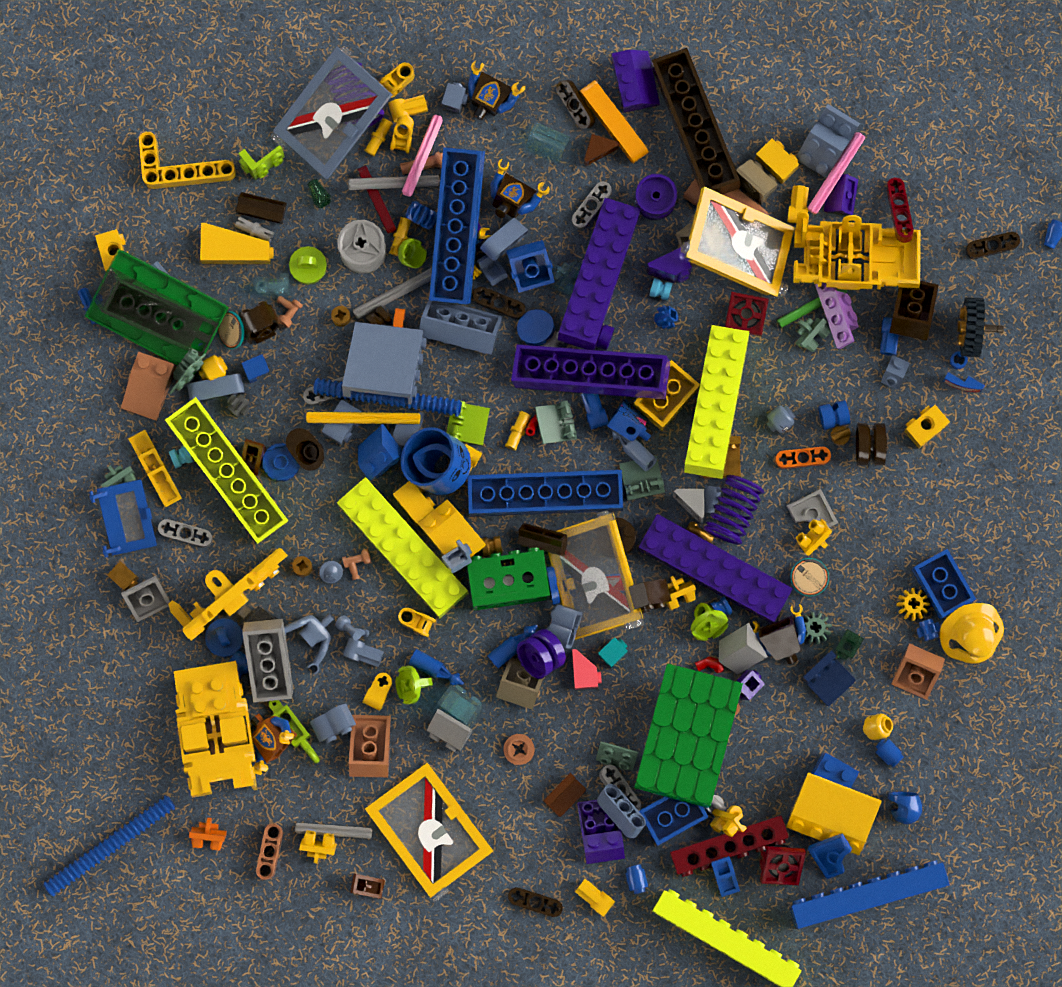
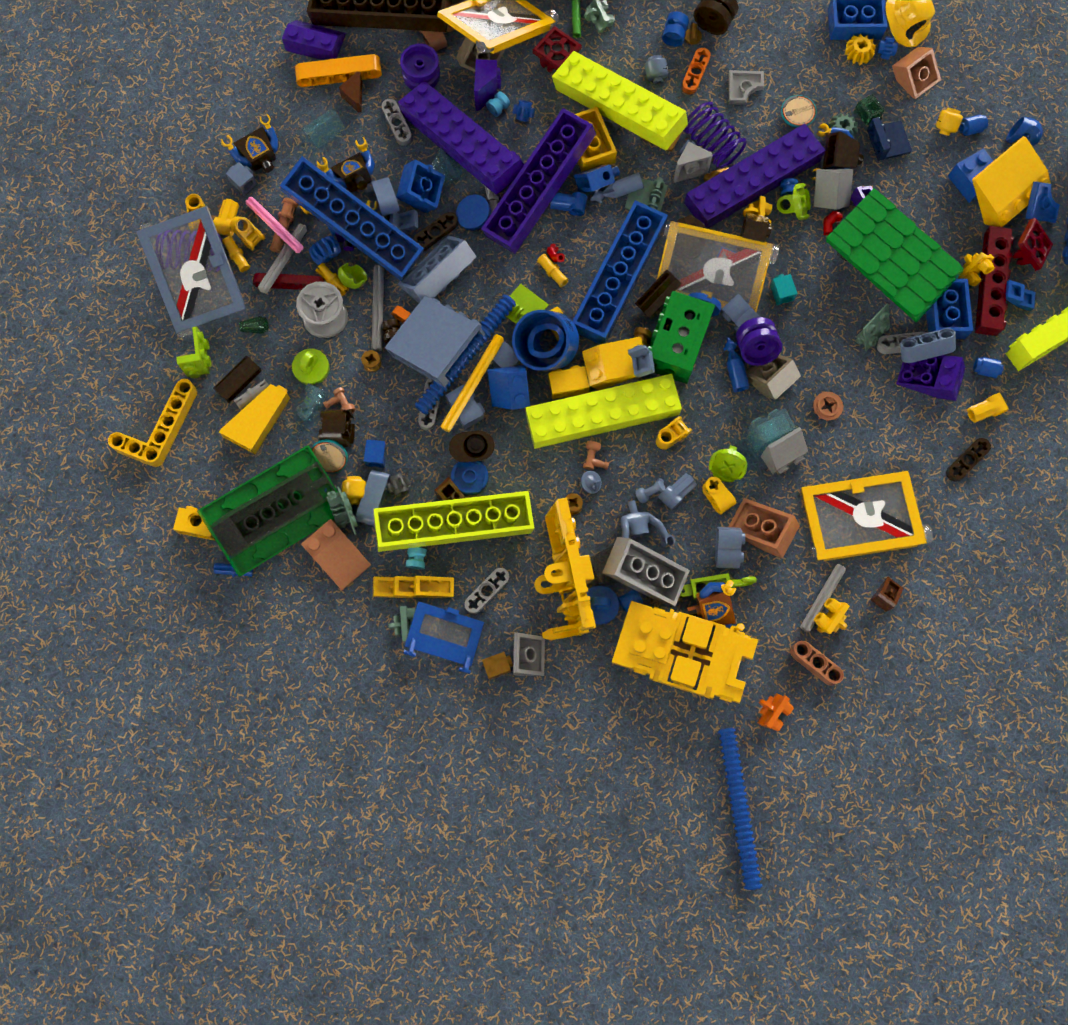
camera: 65 degrees left, 5 degrees down
(433, 667) = (720, 439): blue wheel -> none
(556, 423) = (564, 236): sand green hinge -> none
(565, 795) = (885, 389): reddish brown panel -> none
(578, 118) = (319, 95): dark brown beam -> none
(584, 672) = (789, 319): coral slope -> none
(815, 537) = (768, 90): yellow hips -> none

